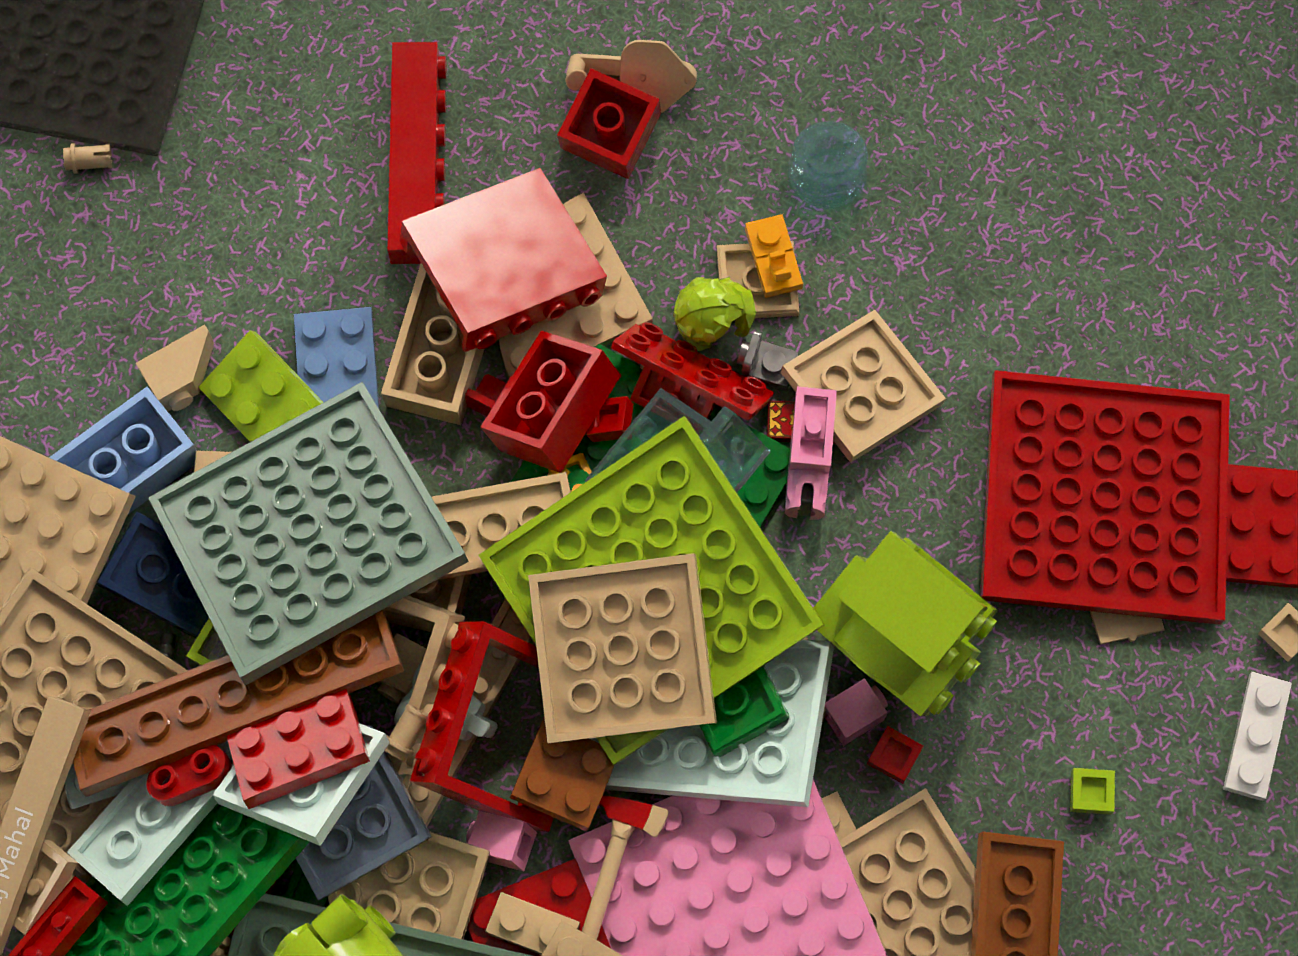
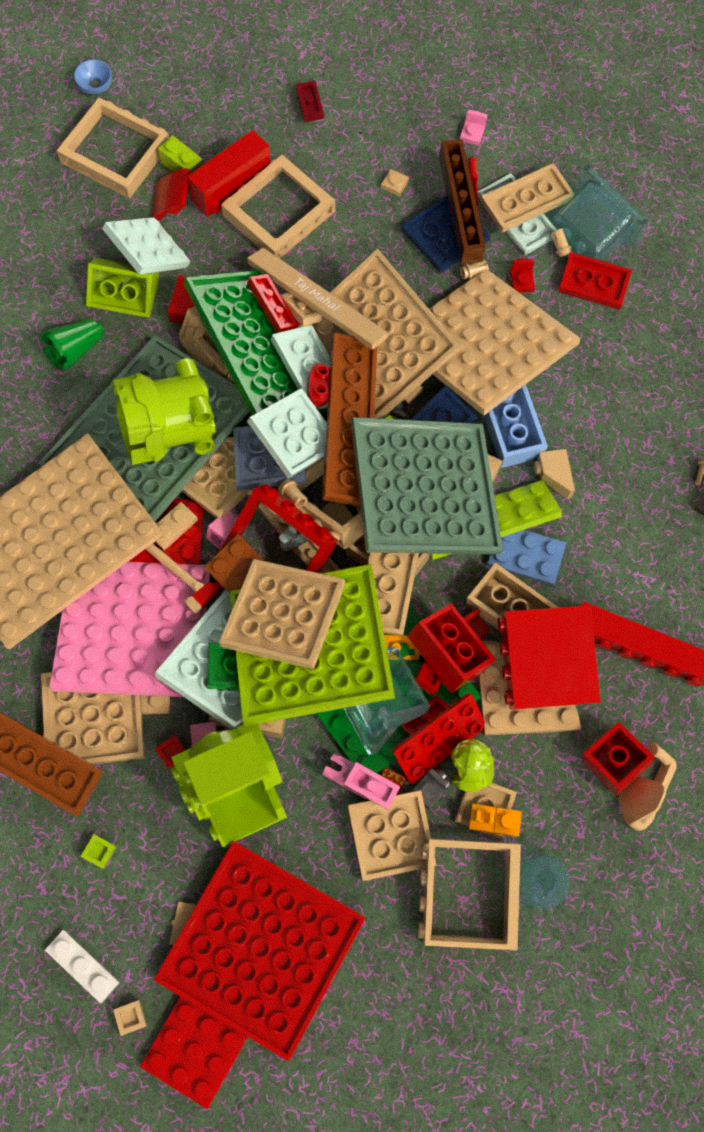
camera: 110 degrees right, 0 degrees up
(297, 749) = (304, 433): plate -> none
(881, 191) = (511, 897): none -> tan window

